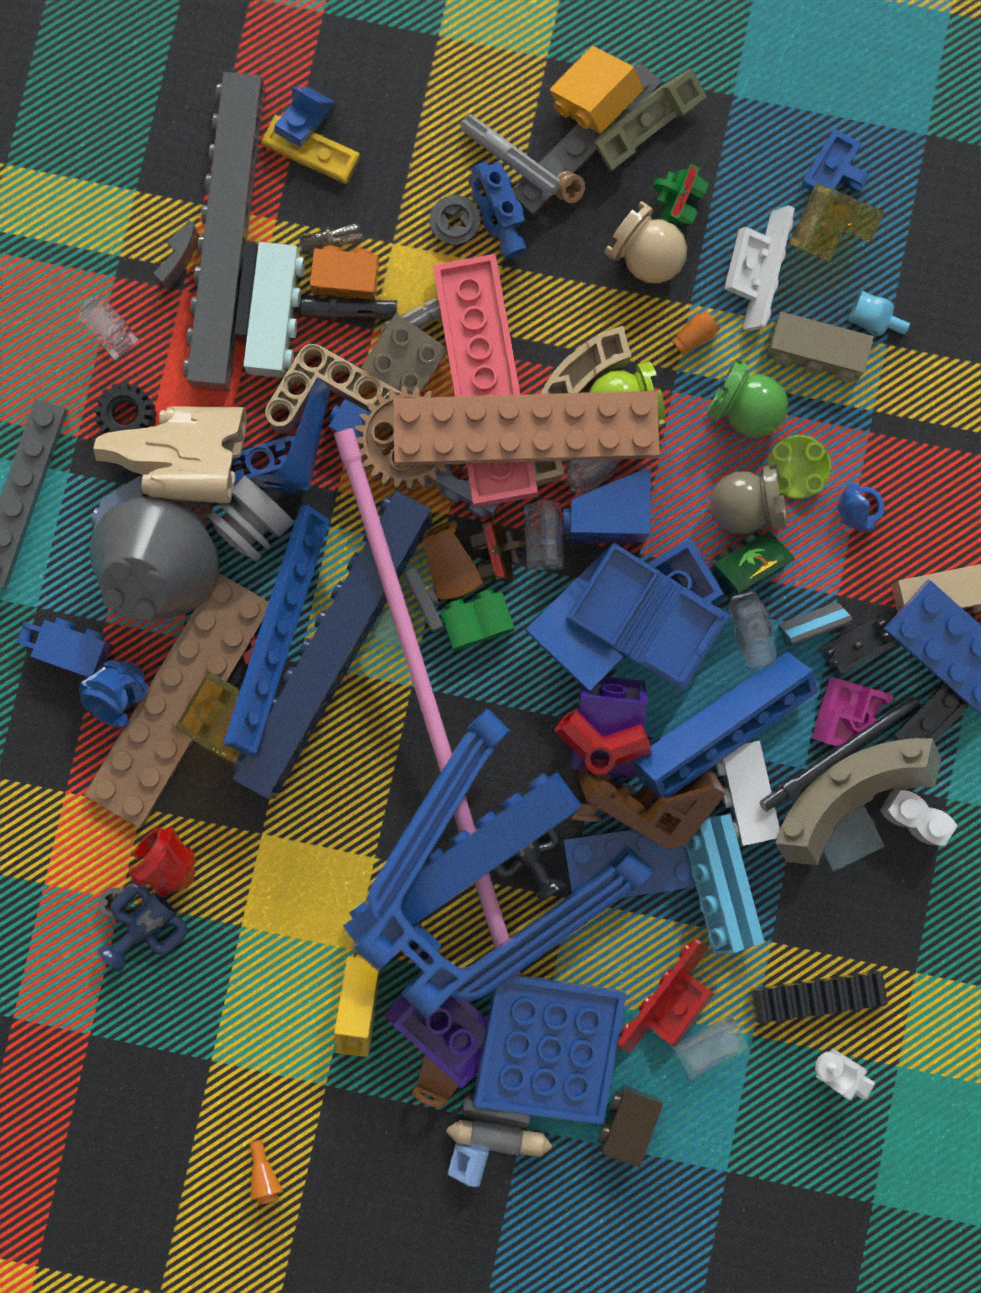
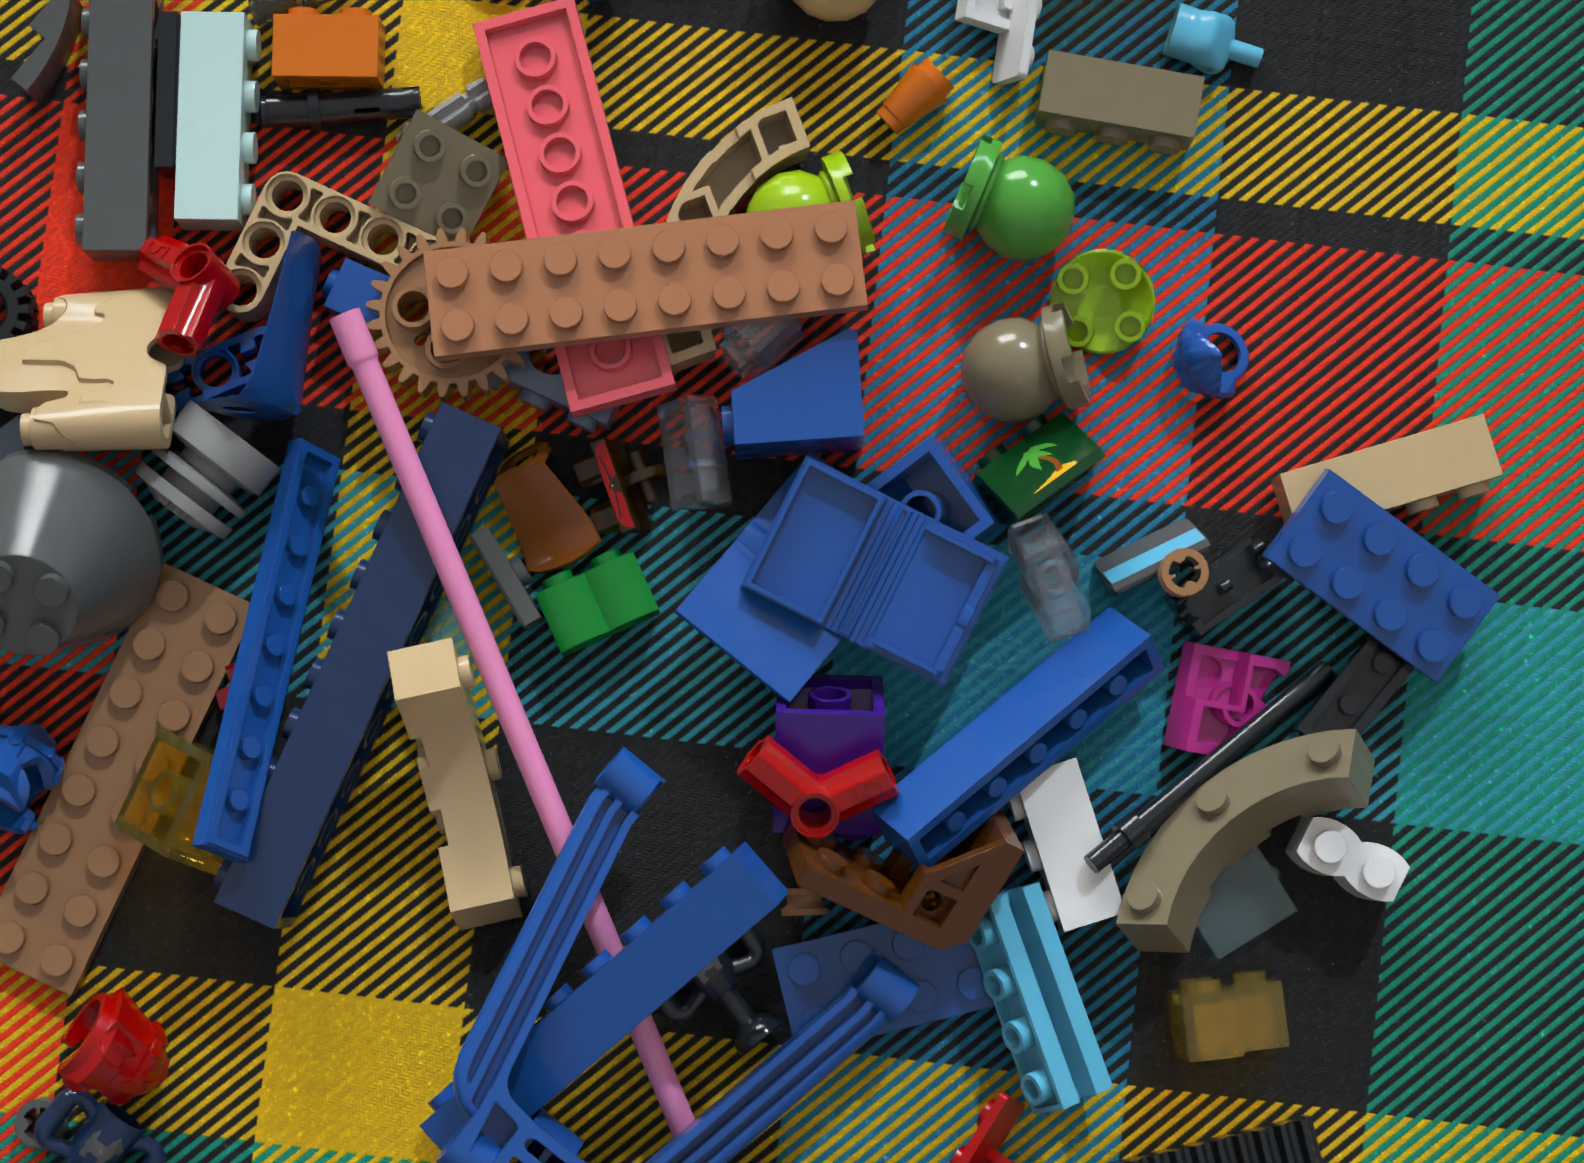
camera: 10 degrees left, 0 degrees up
(255, 406) = (200, 290): none -> red piece
(384, 720) = (458, 781): none -> tan brick
(837, 908) = (1227, 1019): none -> clear yellow brick
(838, 644) = (1177, 557): none -> medium nougat bush

